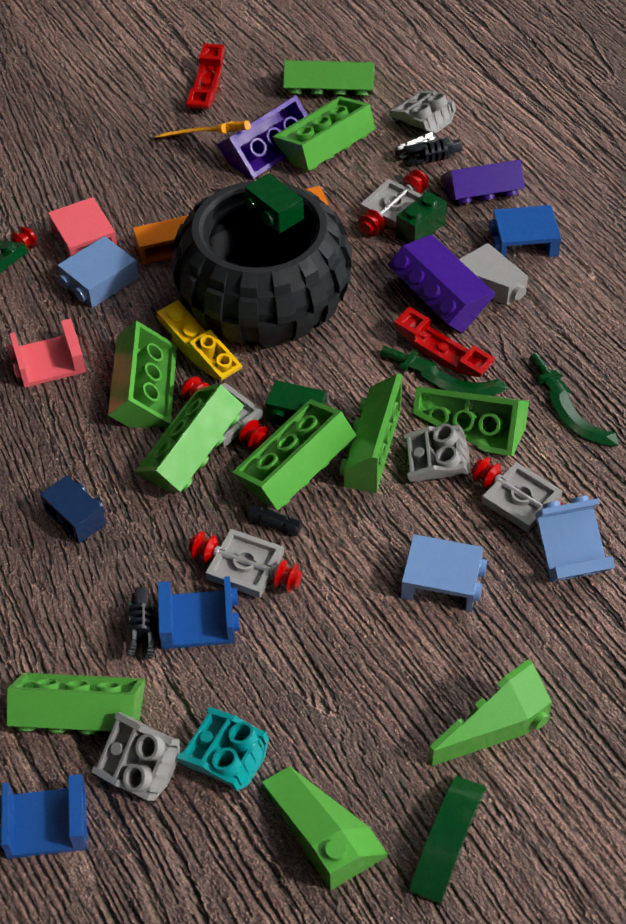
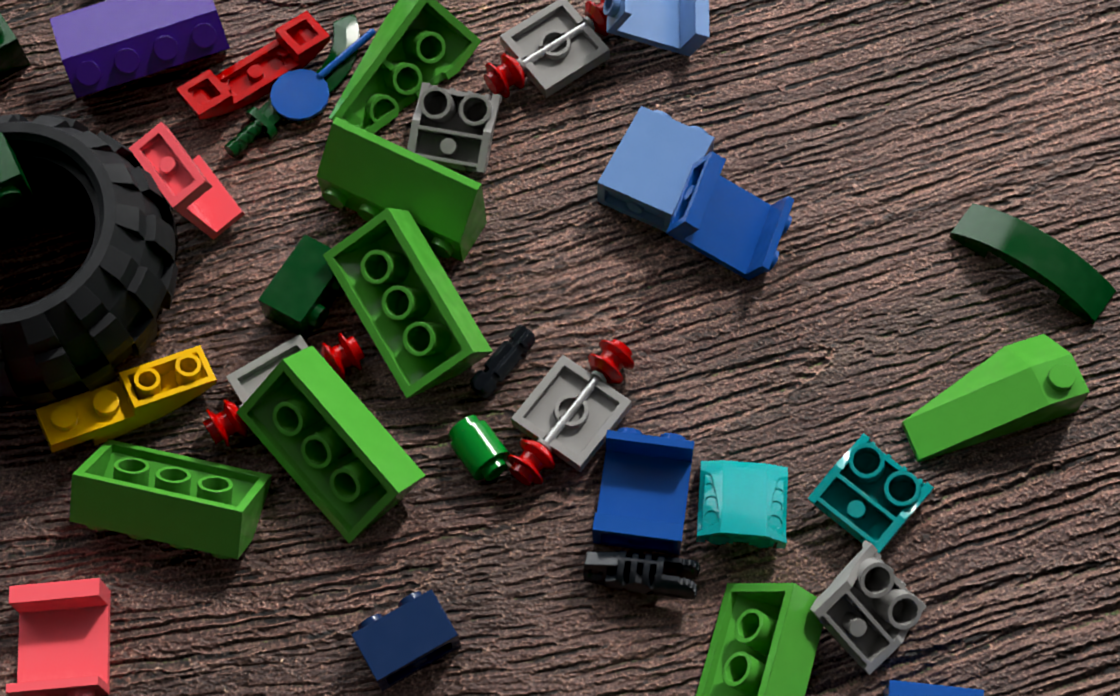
camera: 75 degrees left, 15 degrees up
(201, 674) = (742, 503): none -> teal slope
(207, 516) = (478, 448): none -> green brick
(335, 325) = (185, 182): none -> coral panel
(412, 618) = (728, 221): none -> blue panel
(439, 373) = (304, 93): none -> blue piece
(508, 714) = (886, 147): bright green wedge -> none

